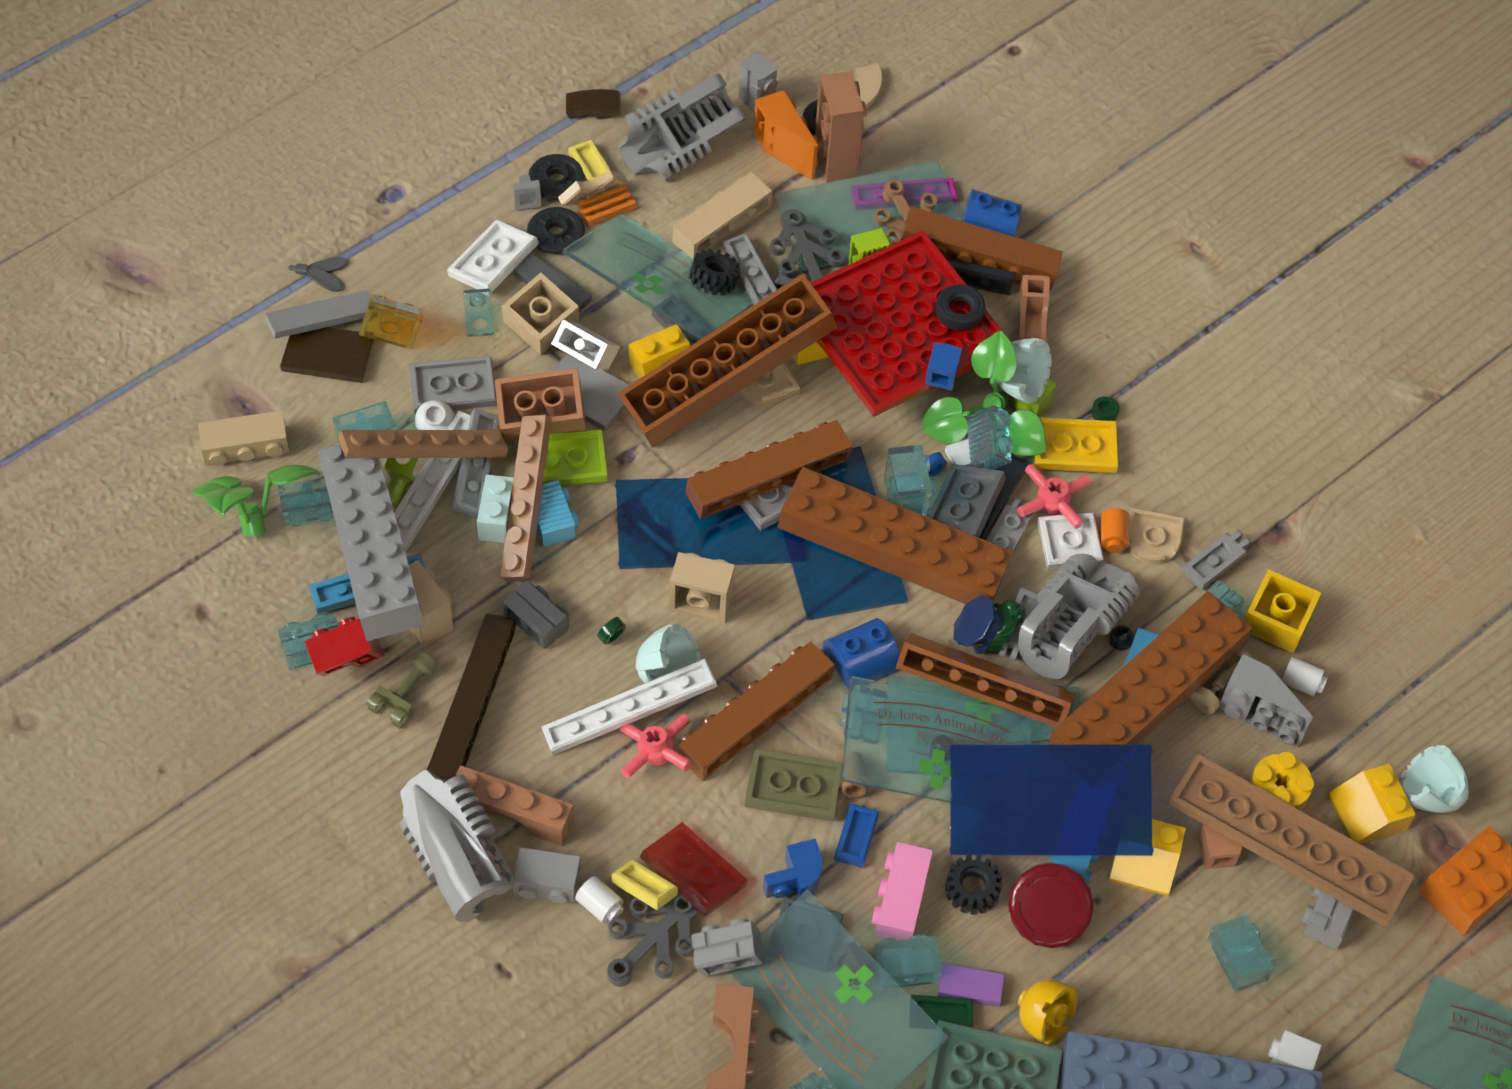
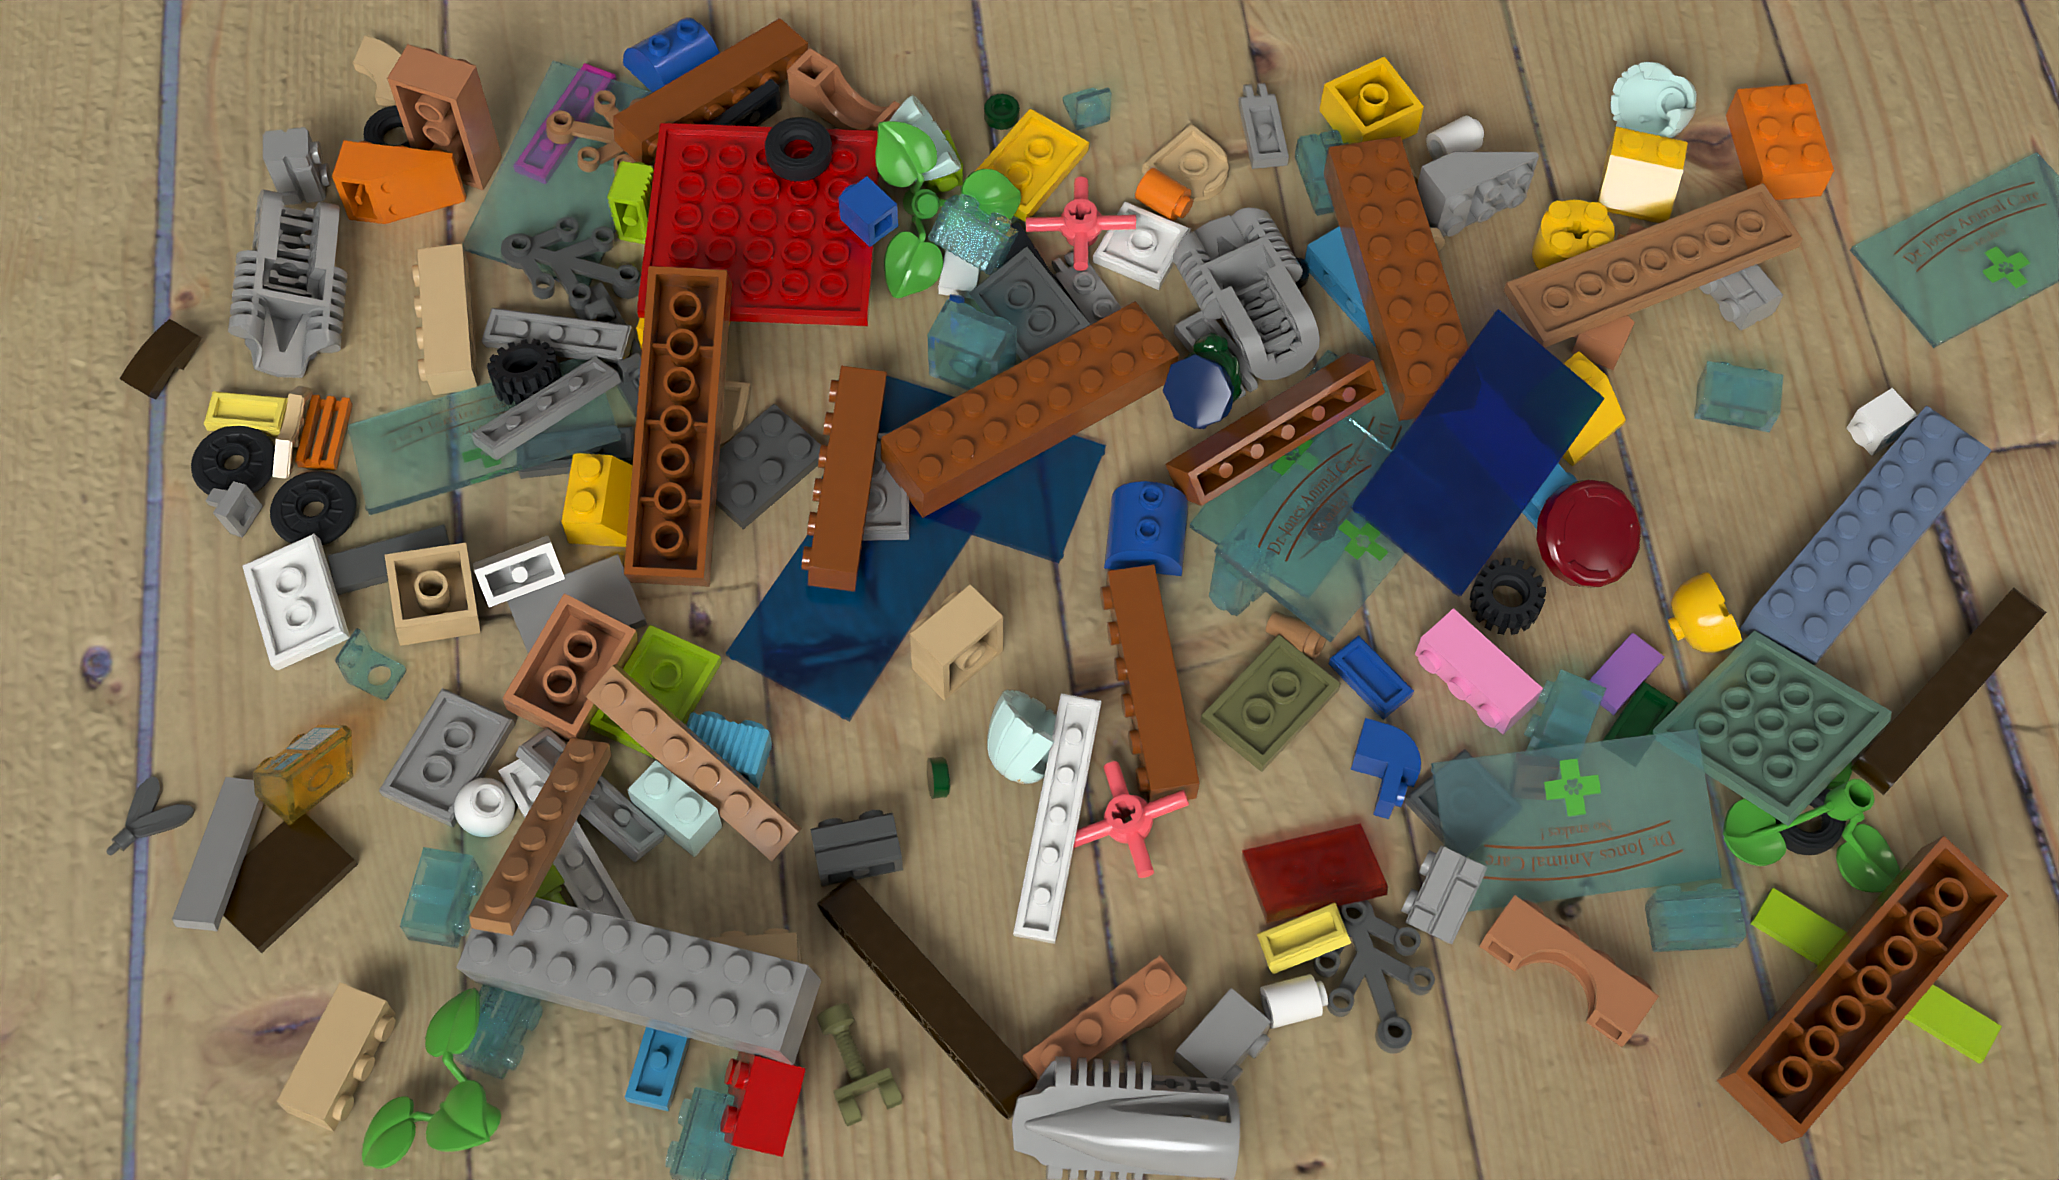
camera: 55 degrees left, 5 degrees up
(695, 293) = (545, 408): none -> light grey tile
(748, 424) = (763, 465): none -> dark grey plate
(1147, 454) = (1091, 107): none -> clear light blue bracket

